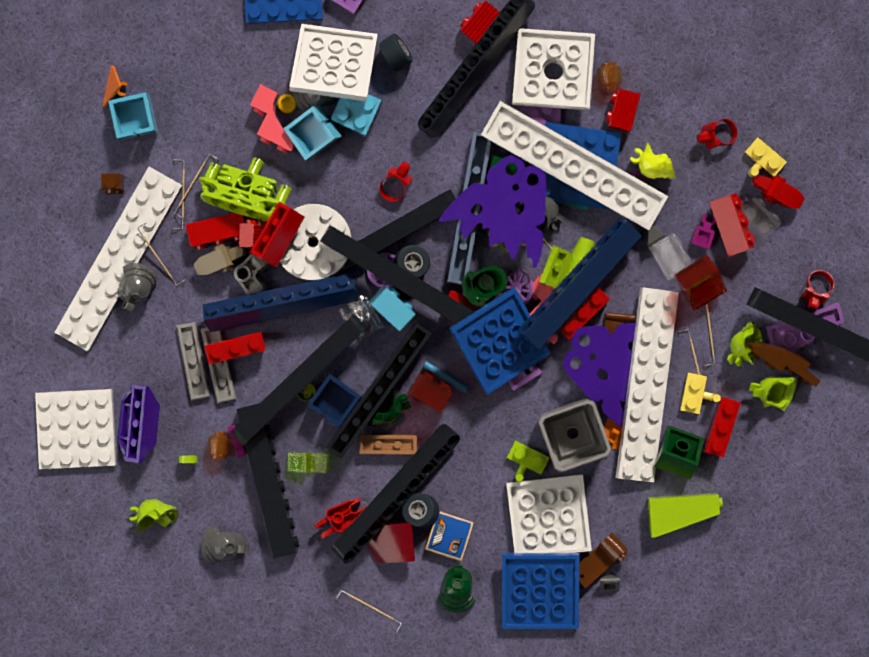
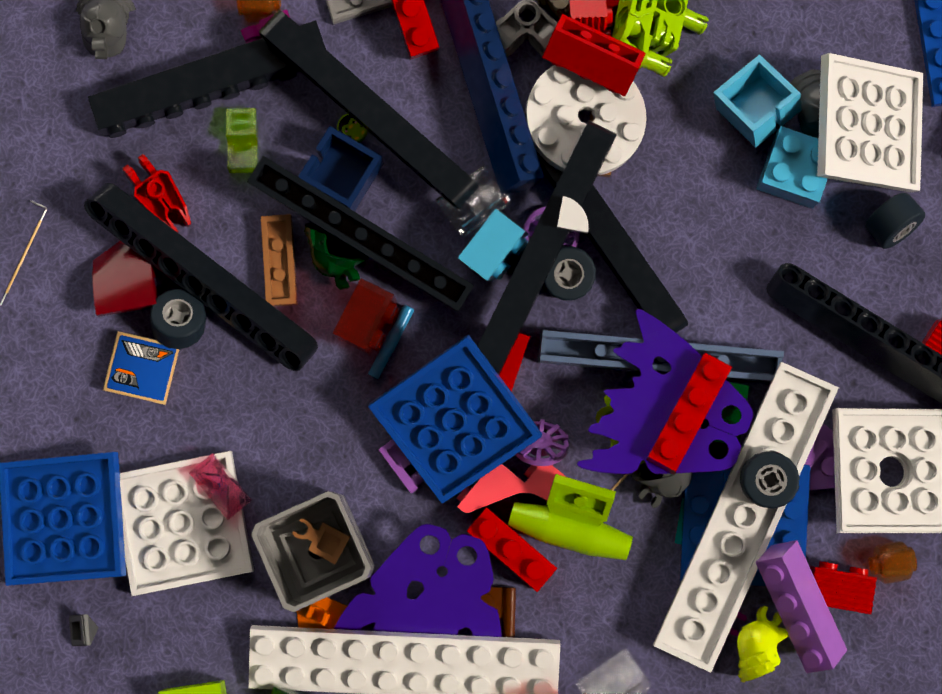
camera: 85 degrees right, 5 degrees down
(271, 129) = (796, 28): coral arch -> none
(286, 104) = (796, 62): yellow tile -> none
(381, 257) = (572, 216): none -> white tile
(400, 173) = (705, 245): red piece -> none
(457, 590) = (56, 387): dark green helmet -> none
(484, 284) = (543, 387): dark green helmet -> none
(508, 195) = (689, 413): none -> red plate
(526, 458) = (272, 480): lime plate -> none
(528, 490) = (220, 486): none -> clear pink slope
(548, 152) = (758, 479): none -> black wheel
(569, 427) = (326, 541): none -> medium nougat plate
(579, 284) = (557, 540): dark blue brick -> none
(601, 558) = (119, 613): reddish brown door -> none
(632, 137) = (801, 606): none -> medium lavender brick
(653, 235) = (645, 653): dark grey slope -> none

